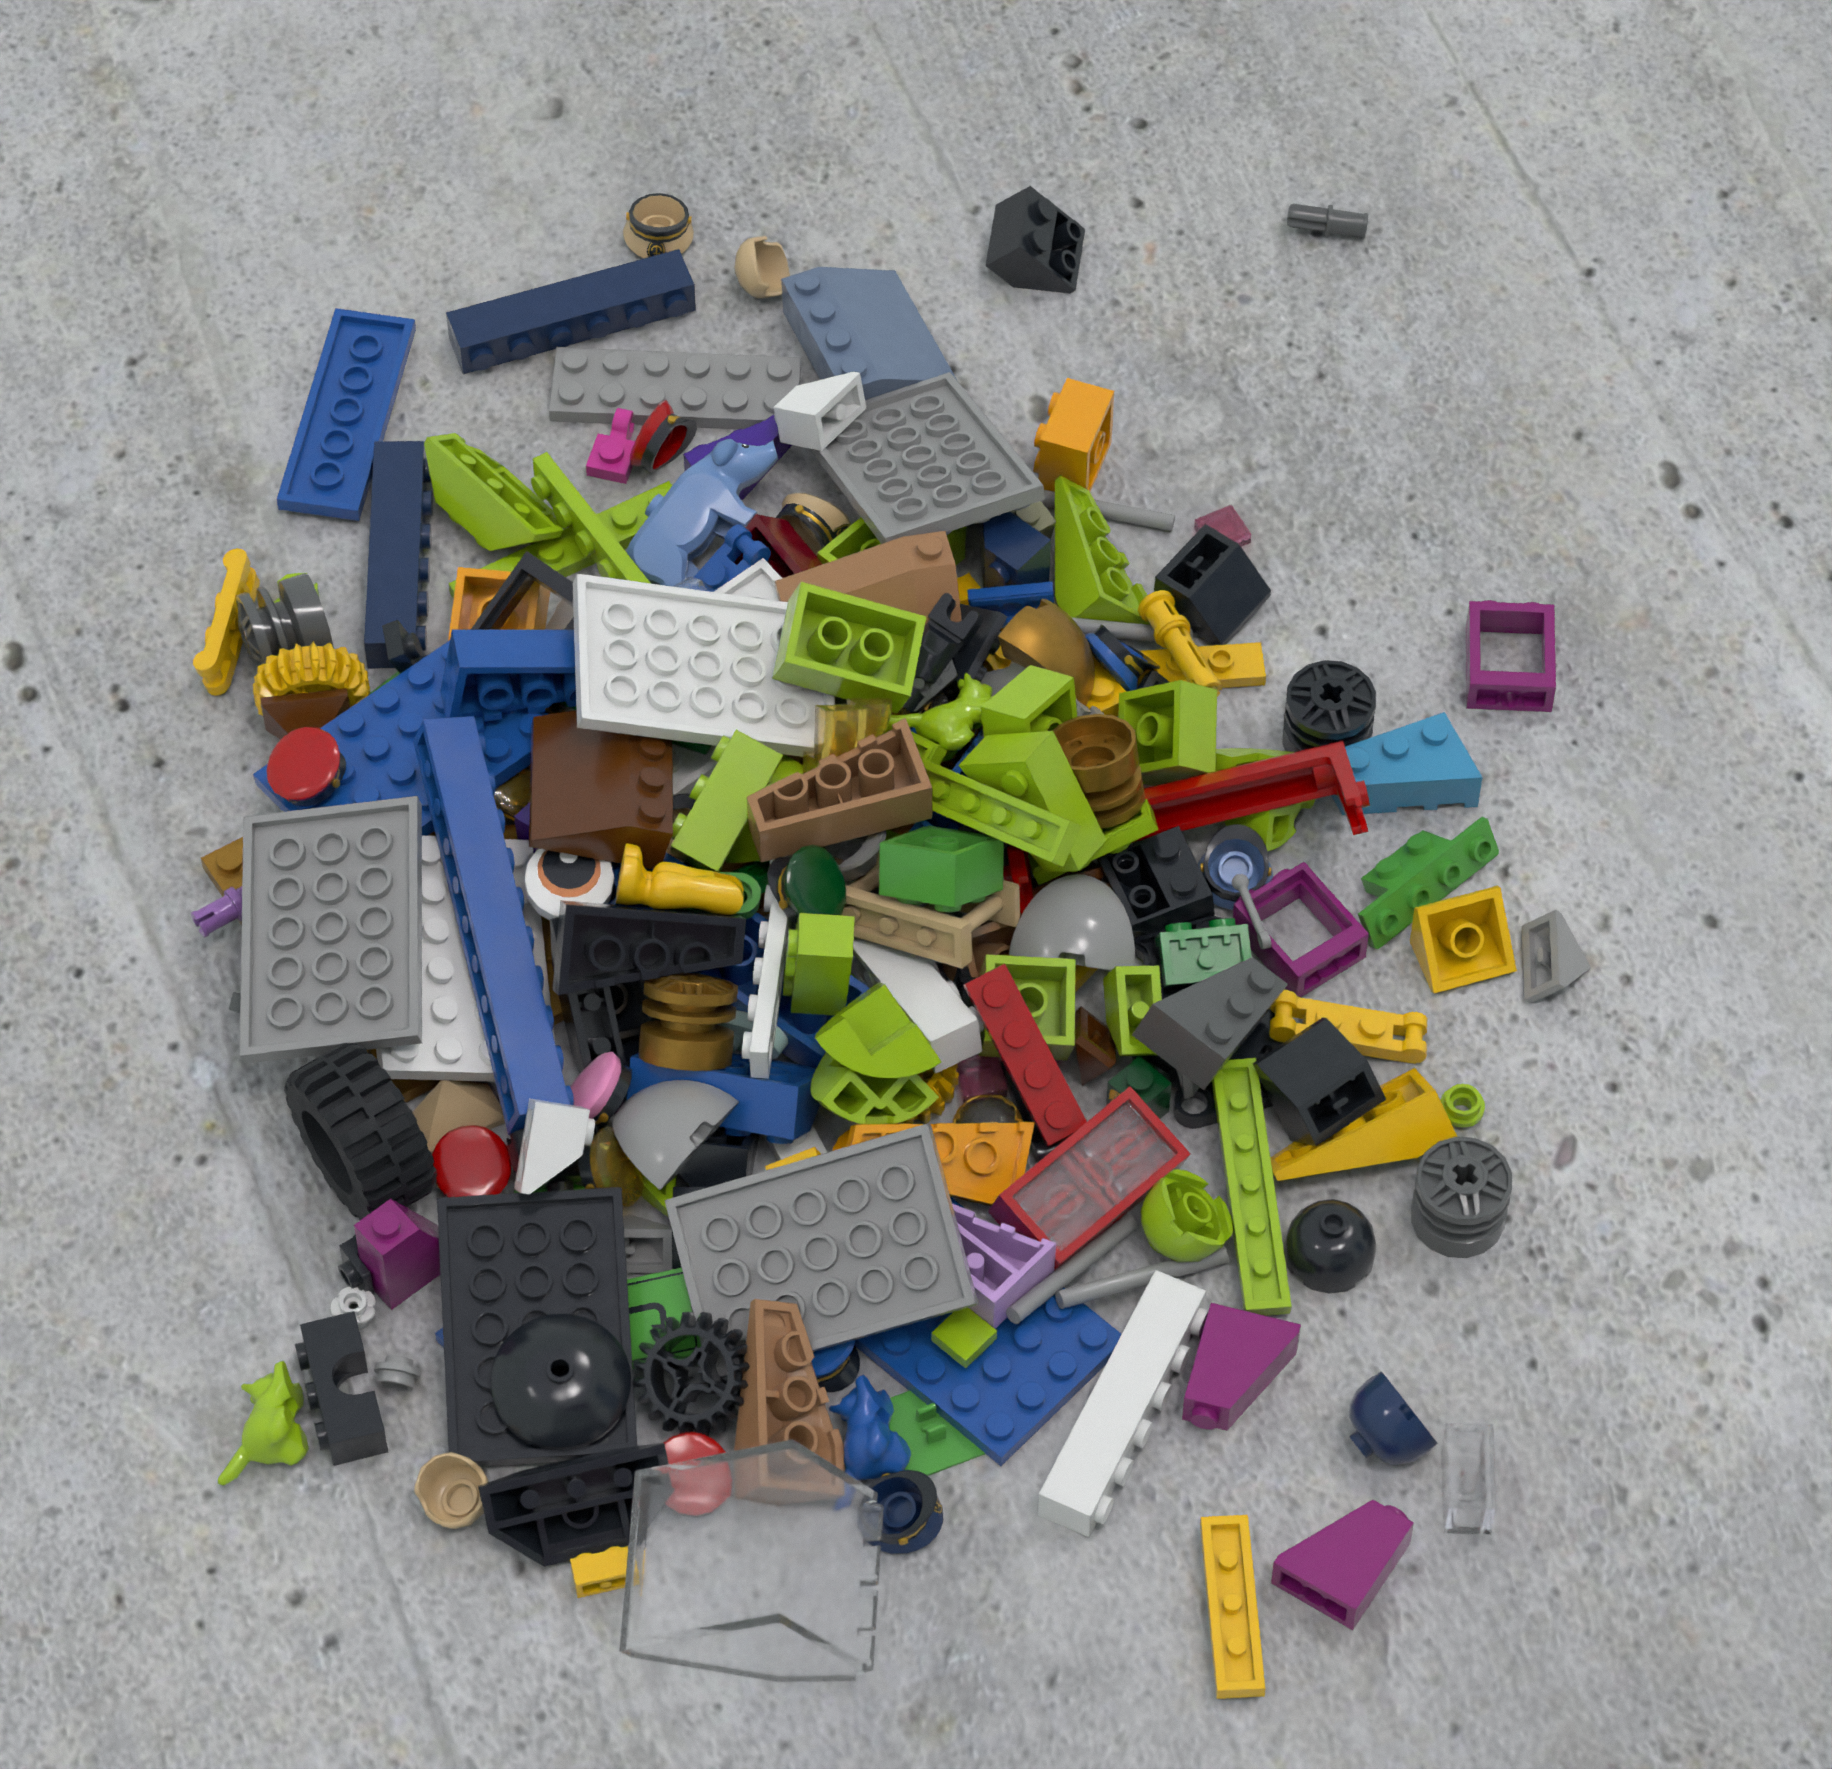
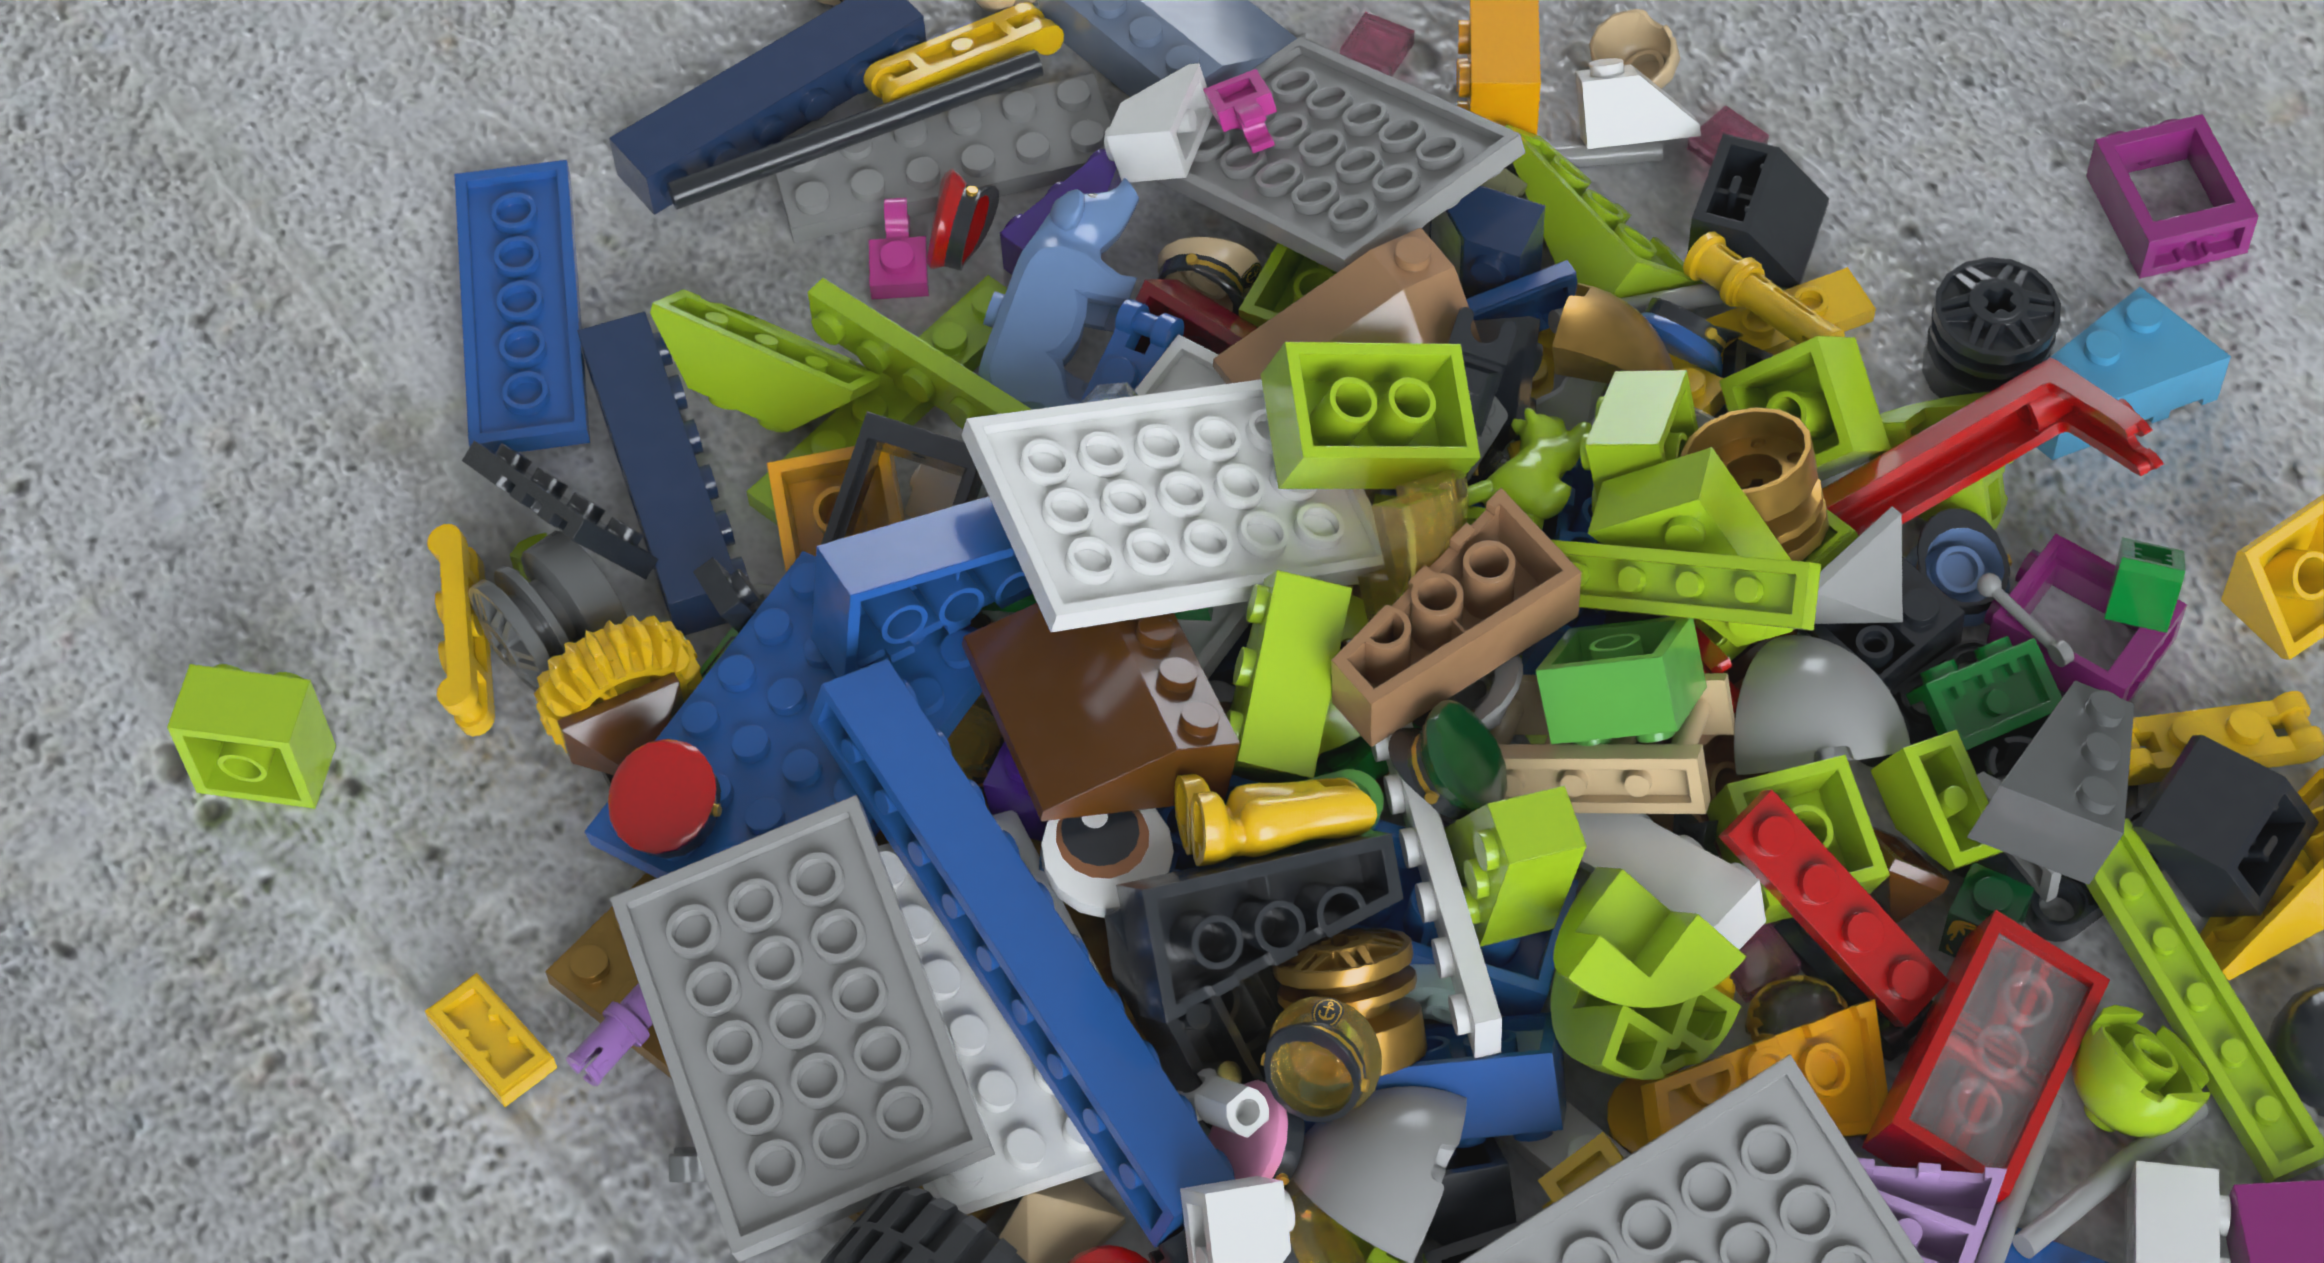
camera: 15 degrees left, 0 degrees up
(66, 652) = (252, 735): none -> lime brick
(151, 890) = (491, 1039): none -> yellow plate
(322, 567) = (576, 517): none -> black wing
(584, 1060) = (1228, 1104): none -> white bar
(617, 352) = (854, 129): none -> black piece
(649, 1047) = (1321, 1059): none -> clear yellow piece
(713, 319) = (964, 51): none -> yellow plate
(878, 411) = (1243, 105): none -> dark pink plate
(1008, 393) = (1378, 43): none -> clear pink tile
(1147, 851) = (1865, 578): none -> light grey slope
(1157, 486) = (1627, 108): none -> white slope
(1179, 449) = (1639, 43): none -> tan hair
(1341, 909) = (2145, 585): none -> green slope
(1420, 875) = (2202, 501): bright green bracket -> none

